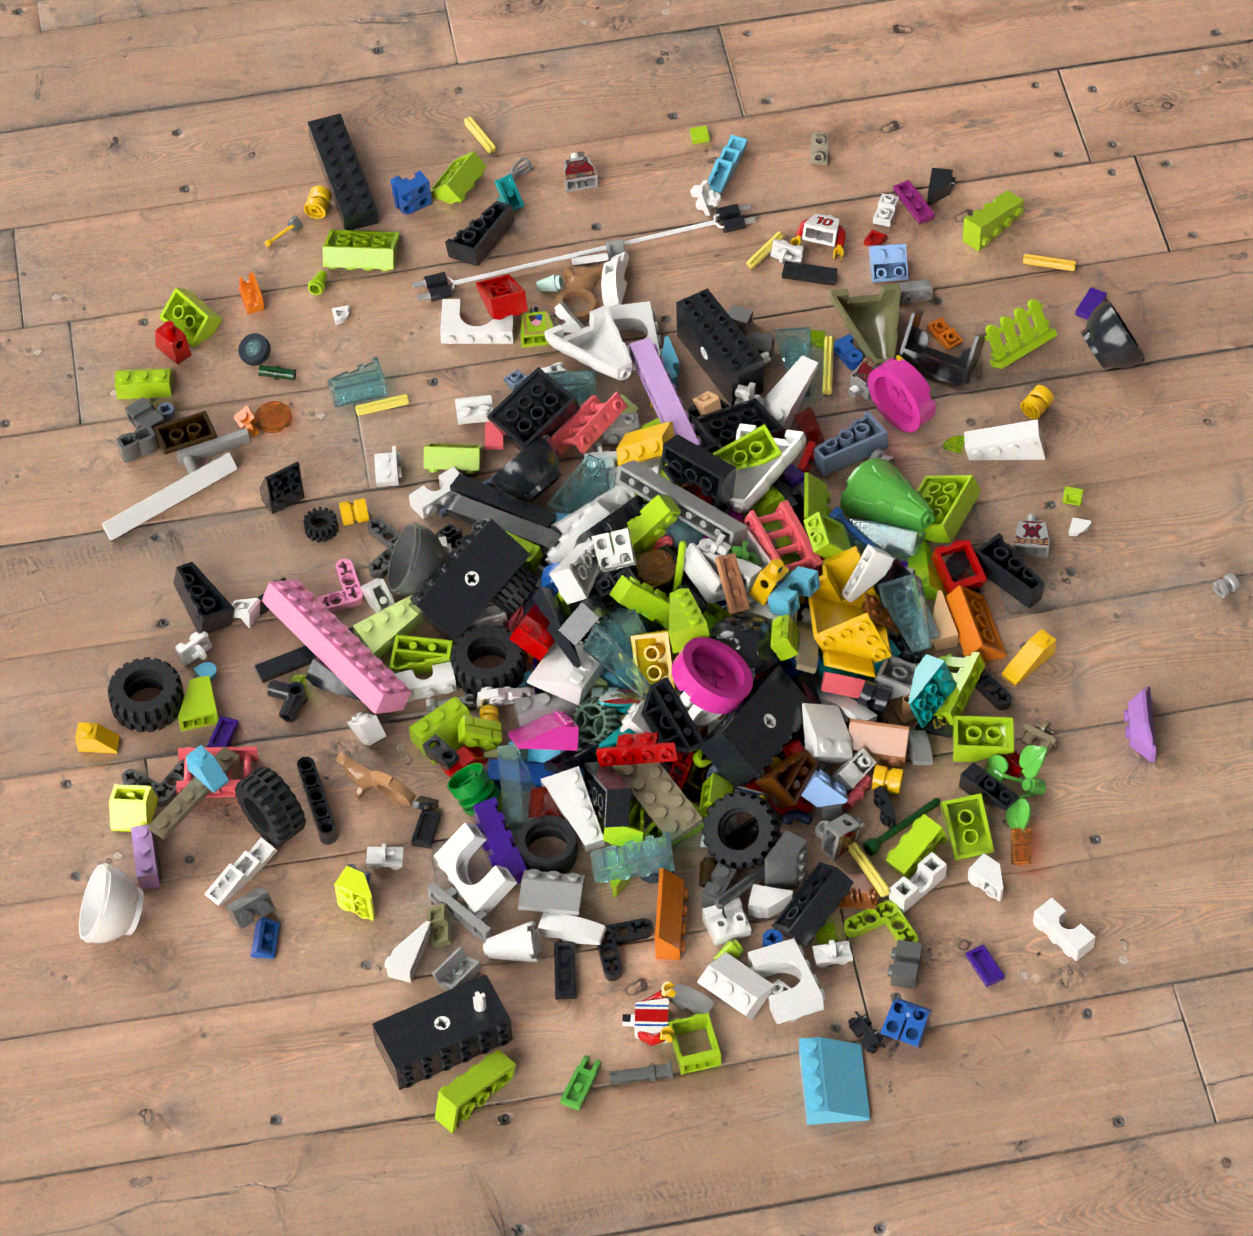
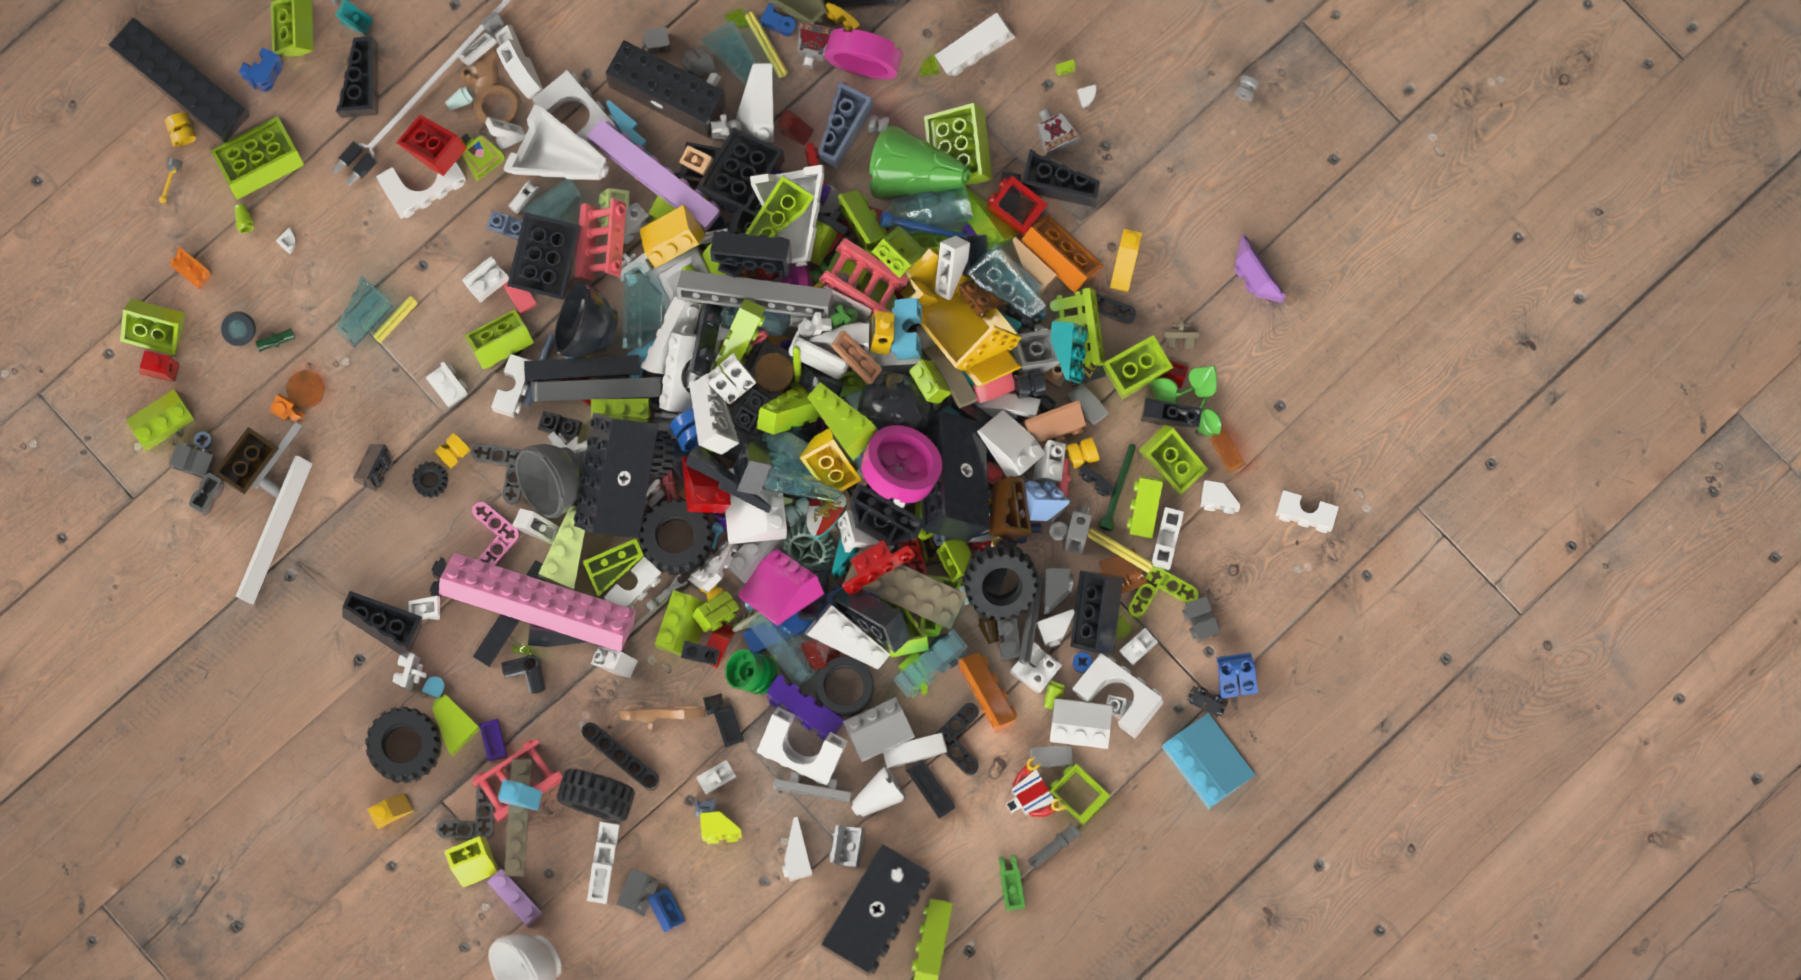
camera: 35 degrees left, 25 degrees up
(440, 926) = (807, 815): olive slope -> none
(985, 965) = (1262, 581): dark purple tile -> none

